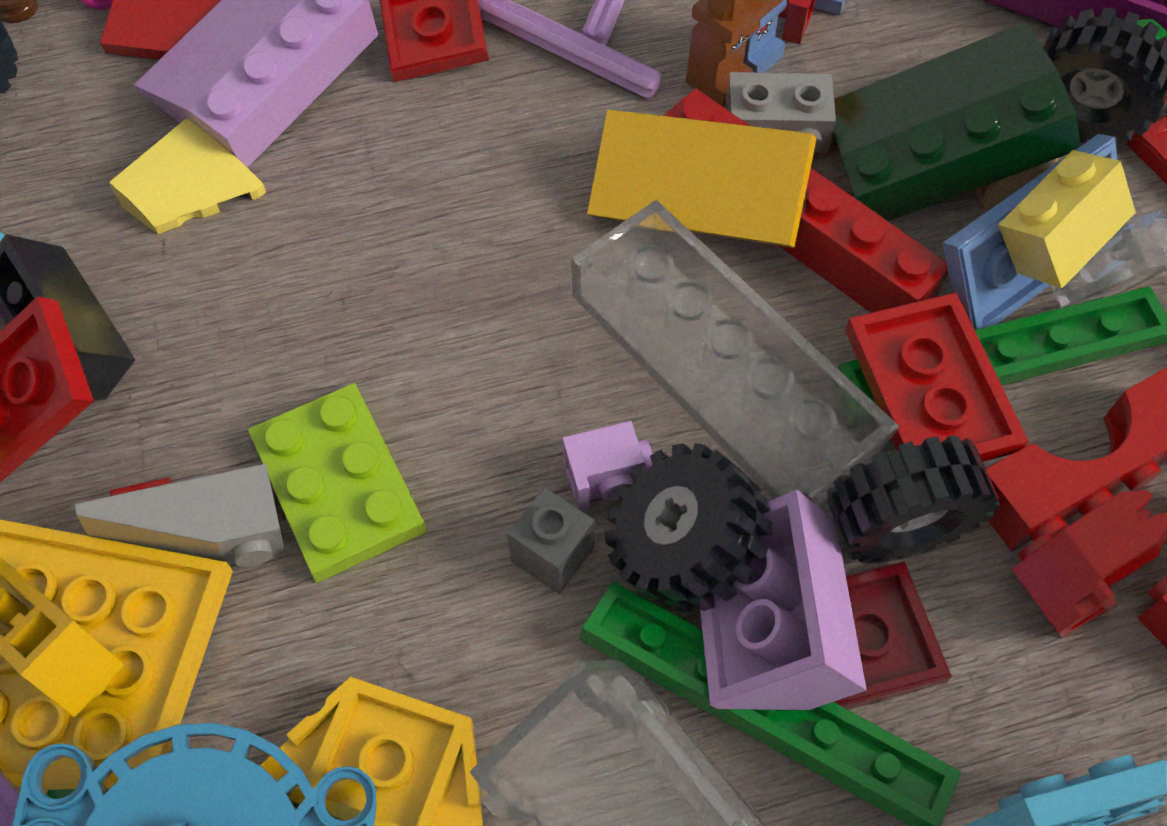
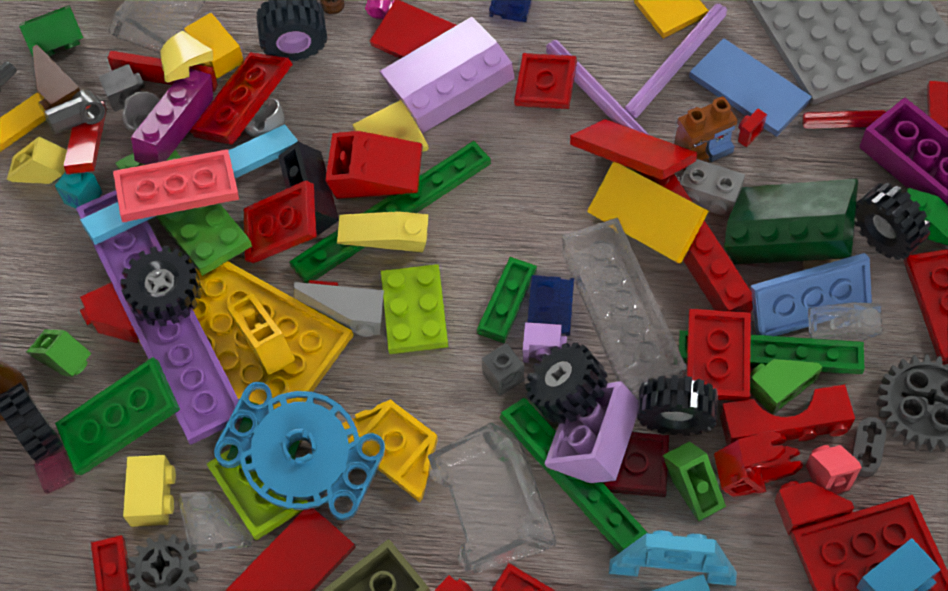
camera: 25 degrees right, 0 degrees up
(167, 242) = (372, 165): none -> red slope
(222, 329) = (432, 185): none -> green tile
(230, 351) = (384, 230): none -> light yellow slope
(505, 410) = (506, 300): none -> green tile
(589, 386) = (551, 301): none -> clear blue plate
(632, 83) = (633, 149): none -> red tile
(993, 629) = (695, 479): none -> bright green slope
(1057, 395) = (782, 382): none -> bright green slope
(1067, 218) = (821, 292): light yellow brick -> none

